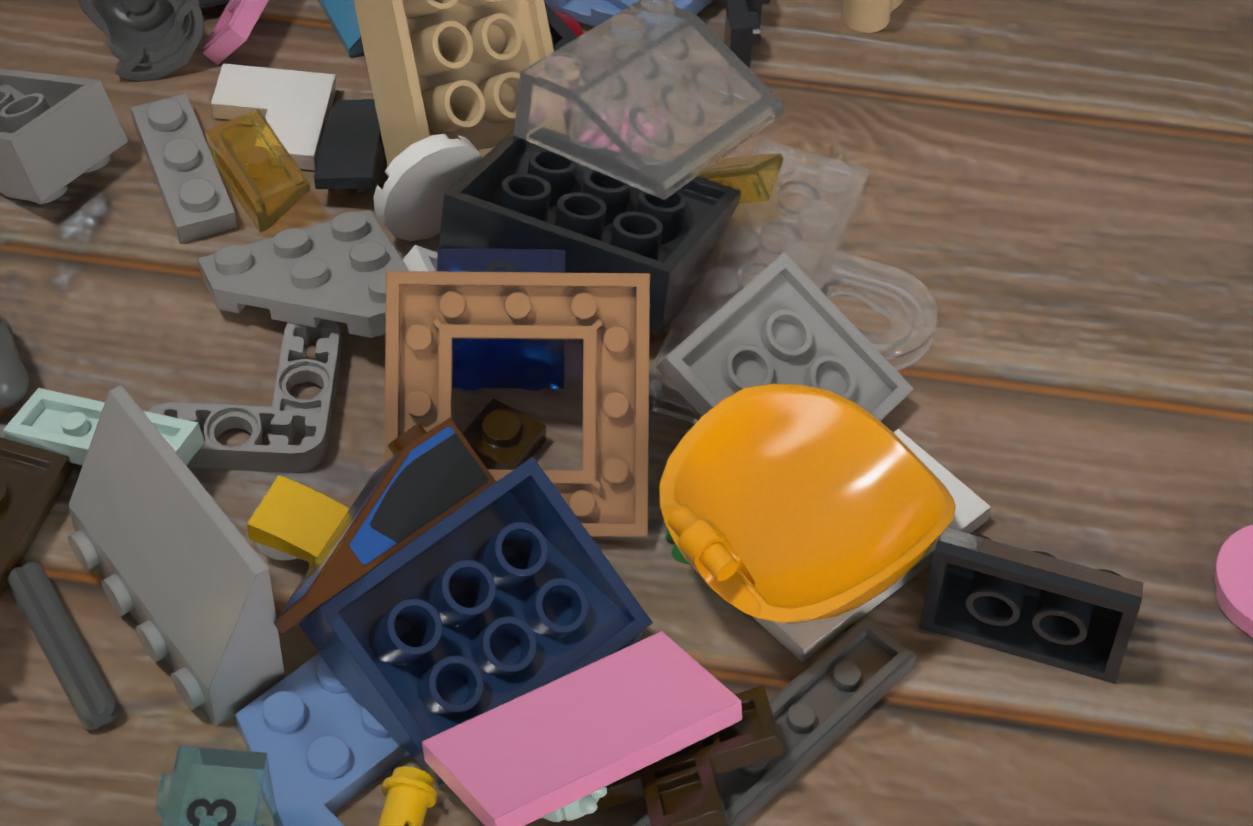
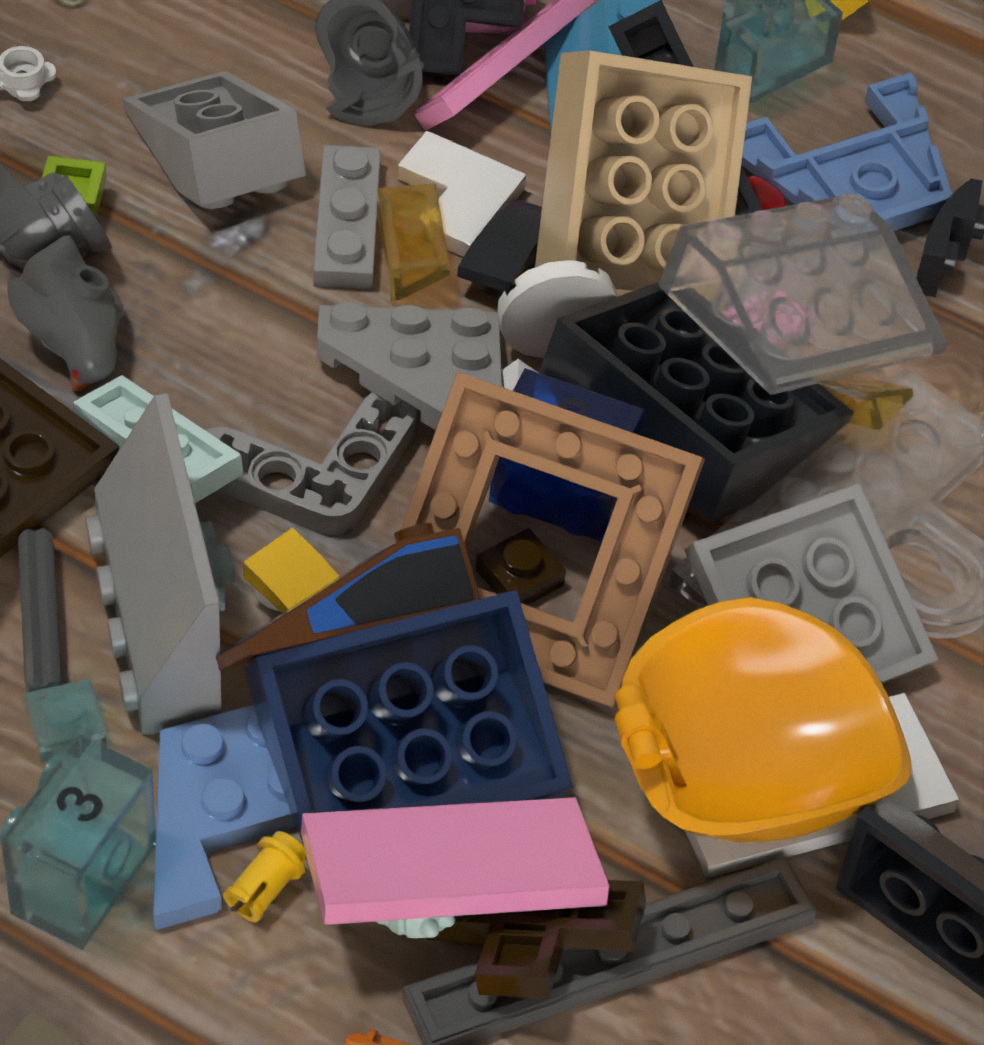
camera: 20 degrees right, 0 degrees up
(135, 739) = (61, 715): none -> clear light blue plate

